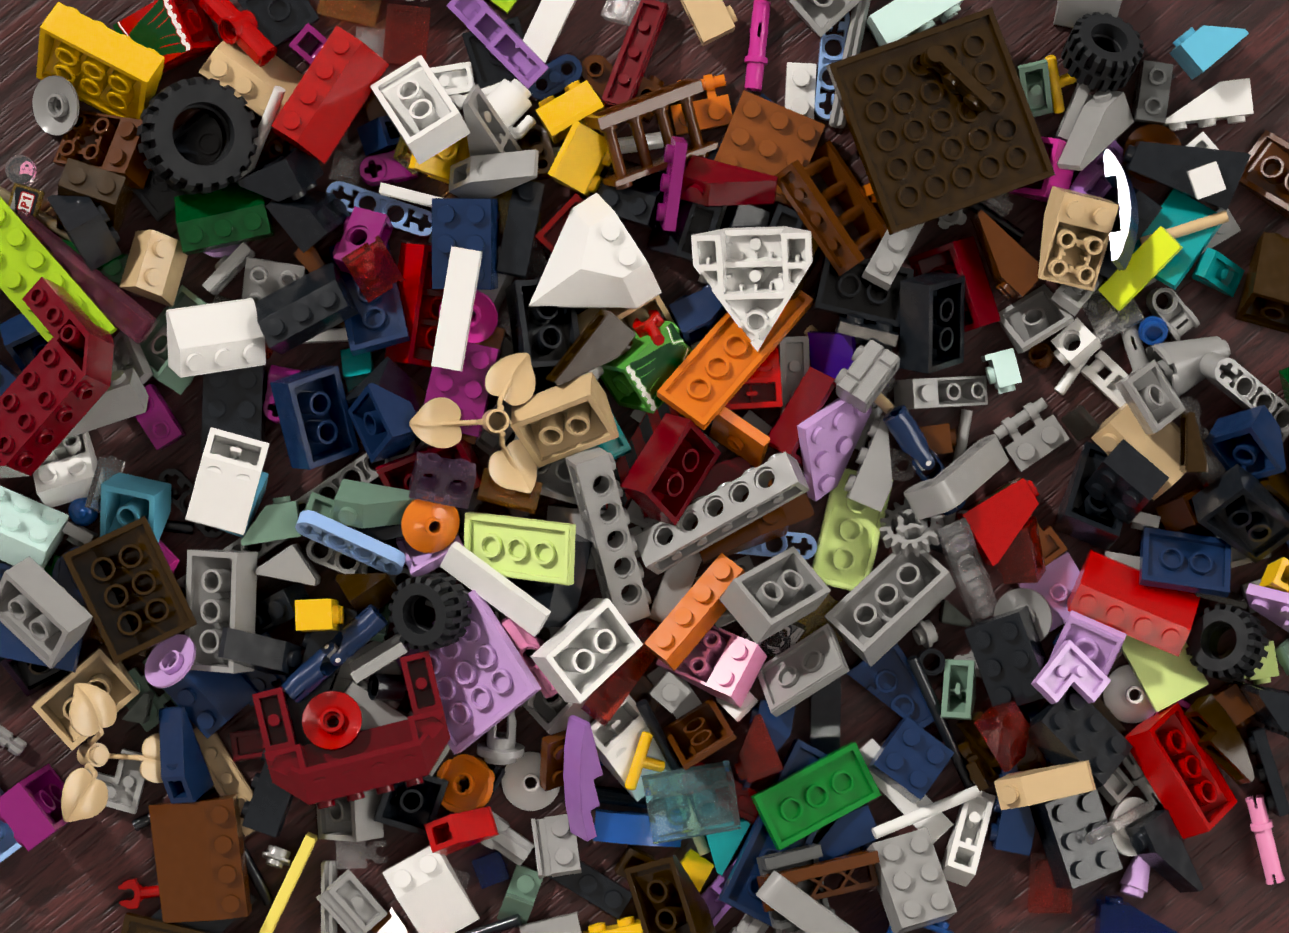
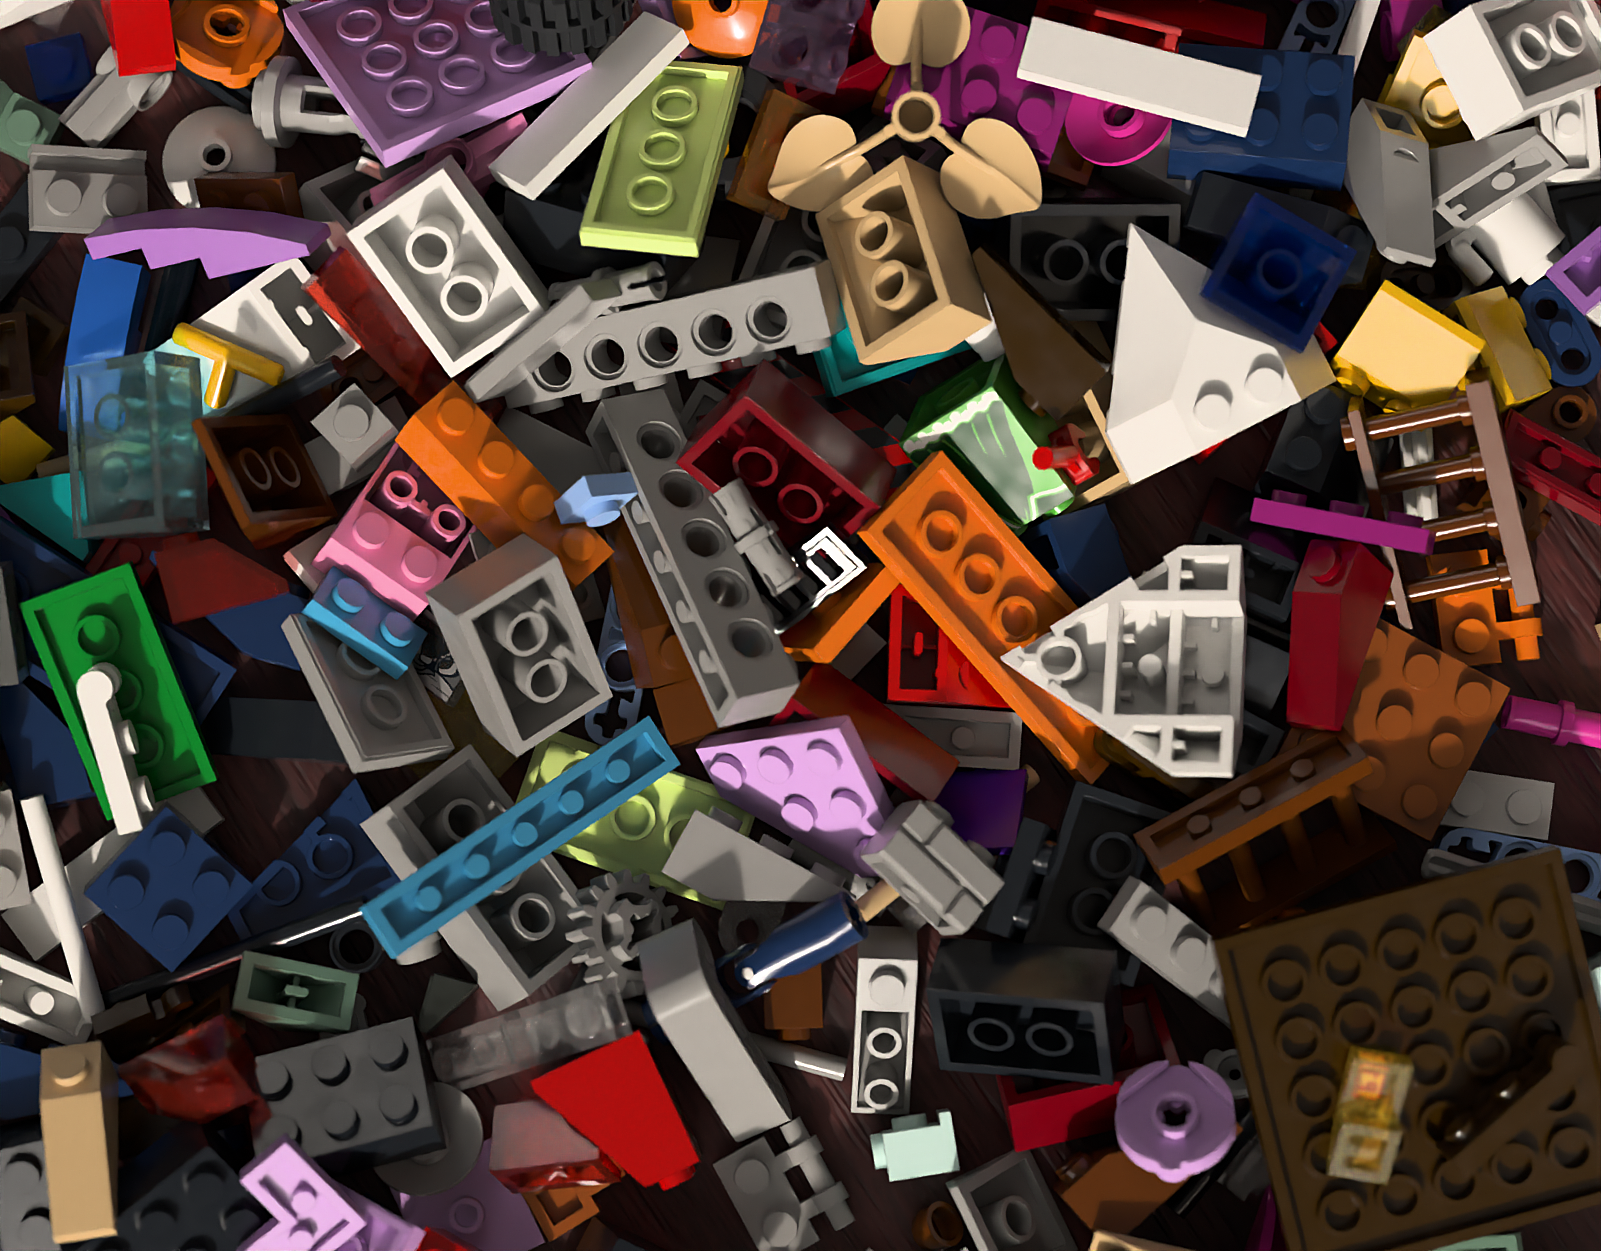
camera: 90 degrees right, 5 degrees down
(549, 230) = (1276, 272): none -> clear blue slope
(591, 569) = (628, 281): none -> light grey pin
(620, 599) = (542, 339): none -> light grey tile
(698, 563) = (596, 499): none -> light blue plate
(710, 480) = (756, 537): none -> light grey pin
(739, 460) = (793, 606): none -> black slope
(768, 675) = (364, 622): none -> dark azure plate
(845, 793) = (114, 745): none -> white plate
(871, 584) = (519, 837): none -> dark azure plate
(969, 149) = (1367, 1115): none -> clear yellow slope
(995, 238) = (1181, 1149): none -> lavender plate

